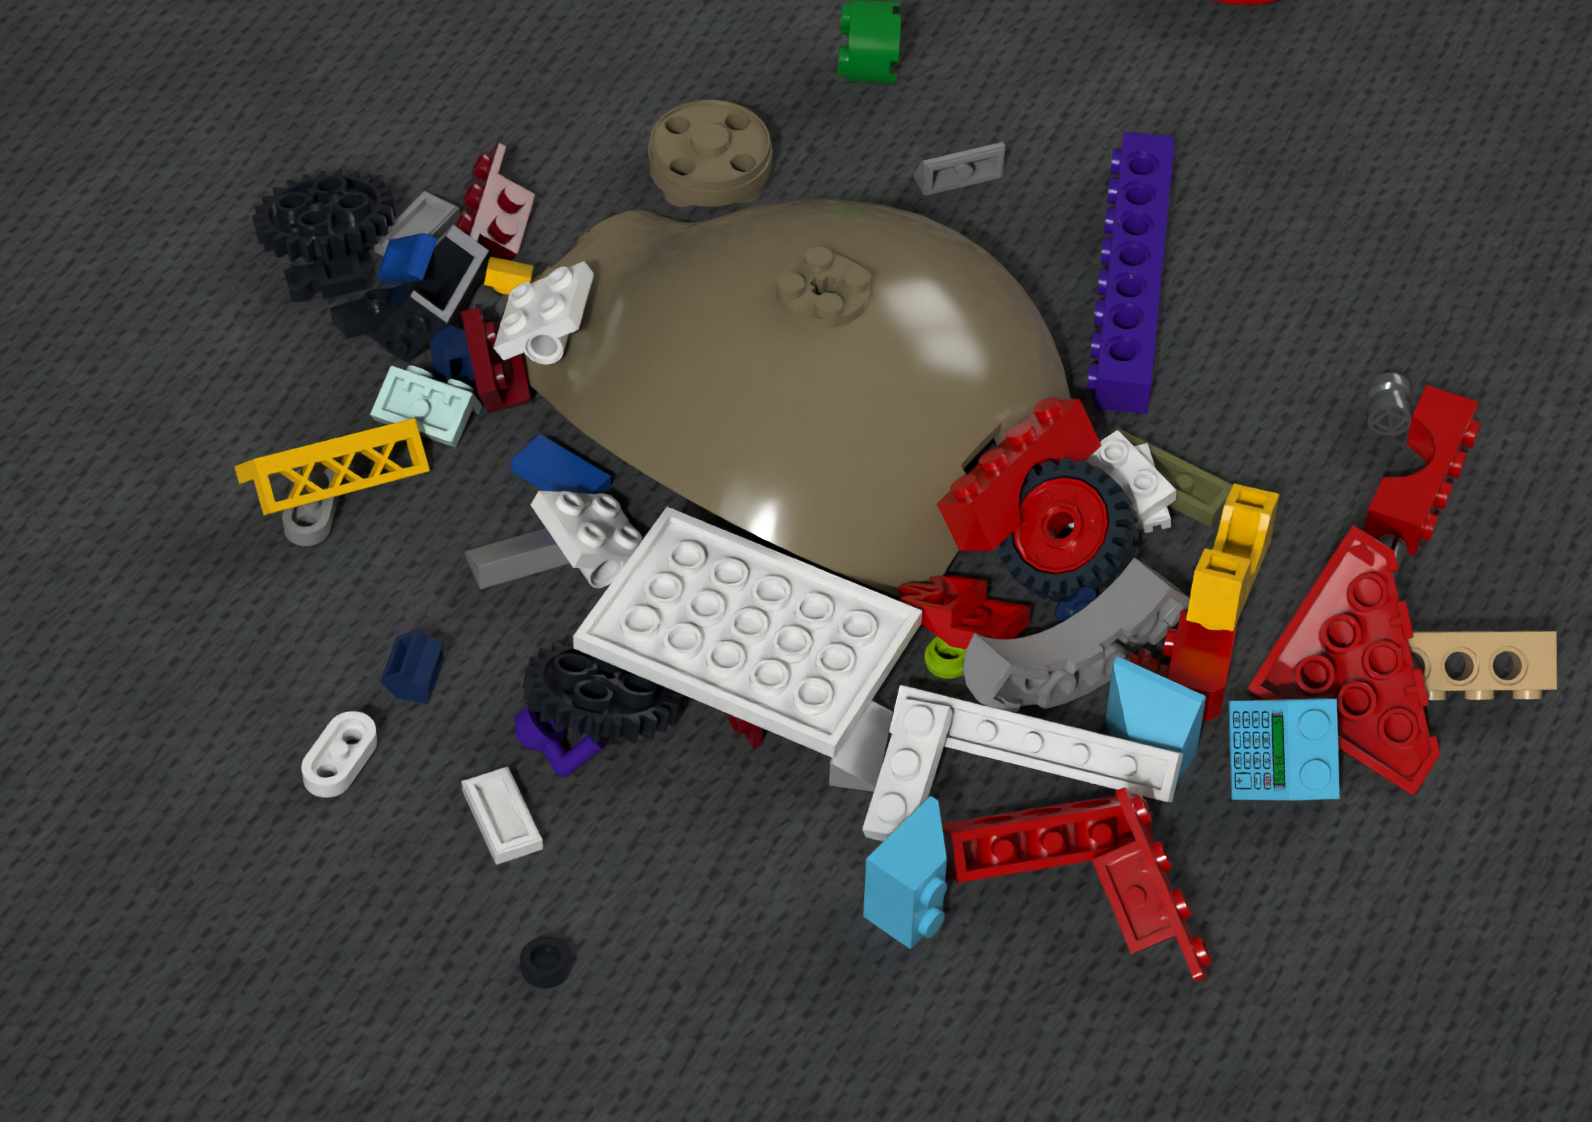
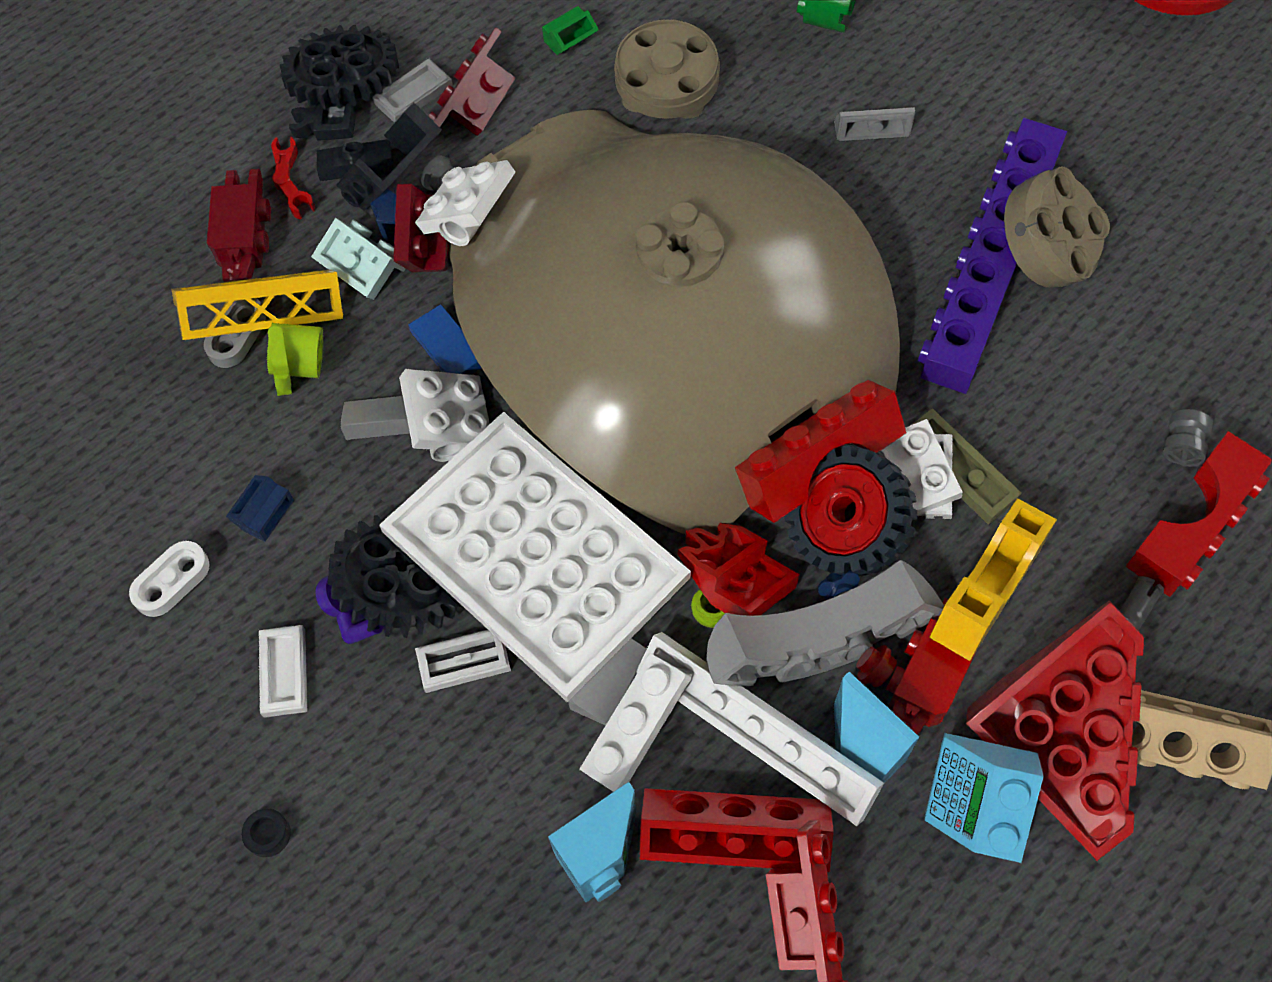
camera: 20 degrees right, 15 degrees up
(271, 398) = (238, 225): none -> dark red hinge
(299, 348) = (284, 162): none -> red piece
(394, 509) = (293, 352): none -> lime piece
(406, 259) = (382, 121): blue tile -> none
(506, 274) = (459, 151): yellow slope -> none
(579, 134) = (568, 30): none -> green piece
(701, 768) = (465, 675): none -> white tile
(1192, 230) = (1055, 228): none -> dark tan piece

